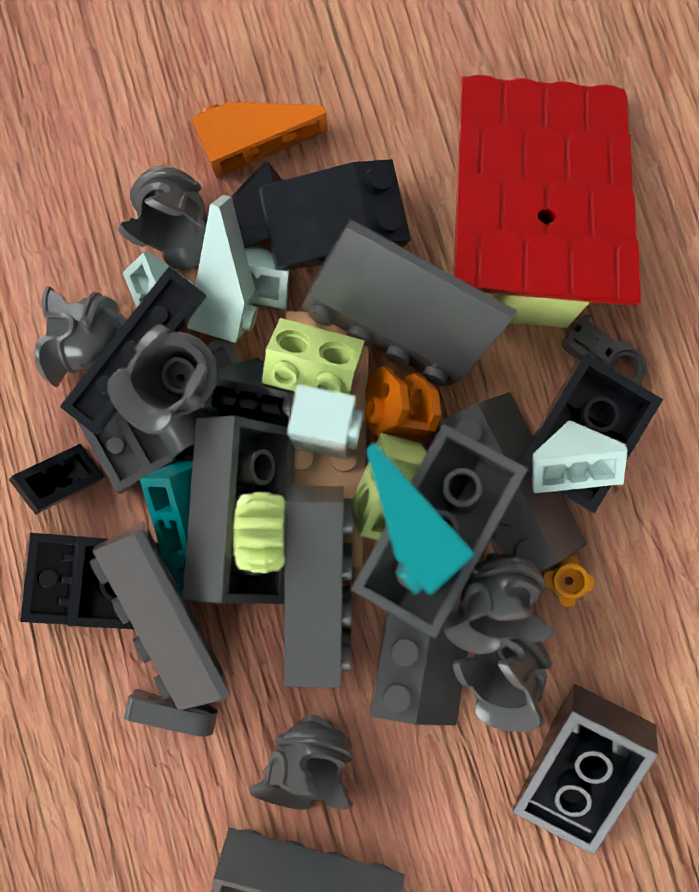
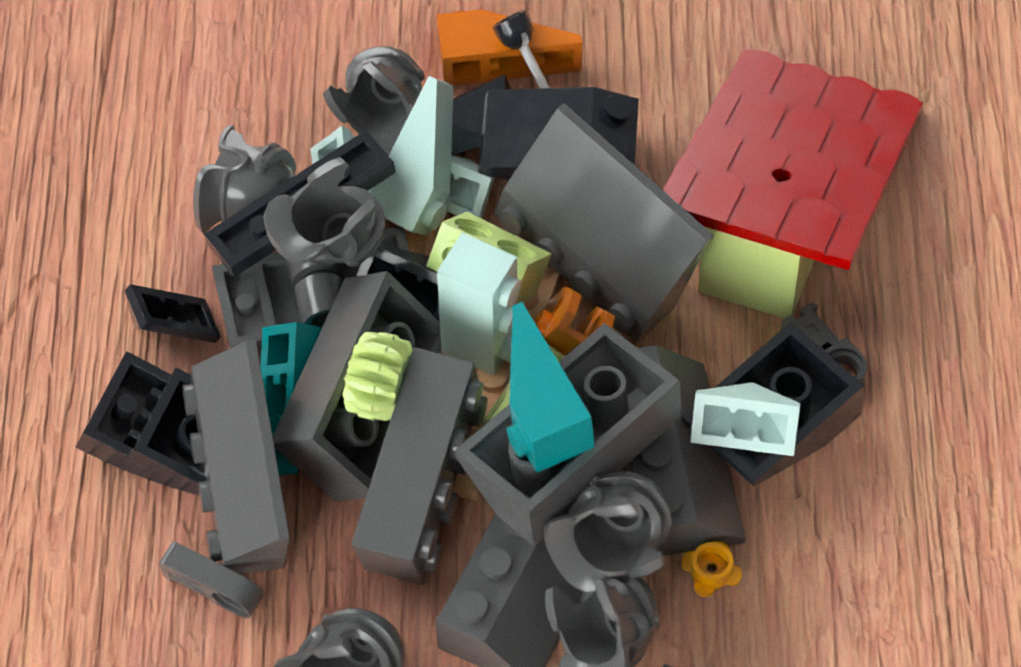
camera: 15 degrees right, 25 degrees down
(267, 122) = (516, 33): none -> black hinge

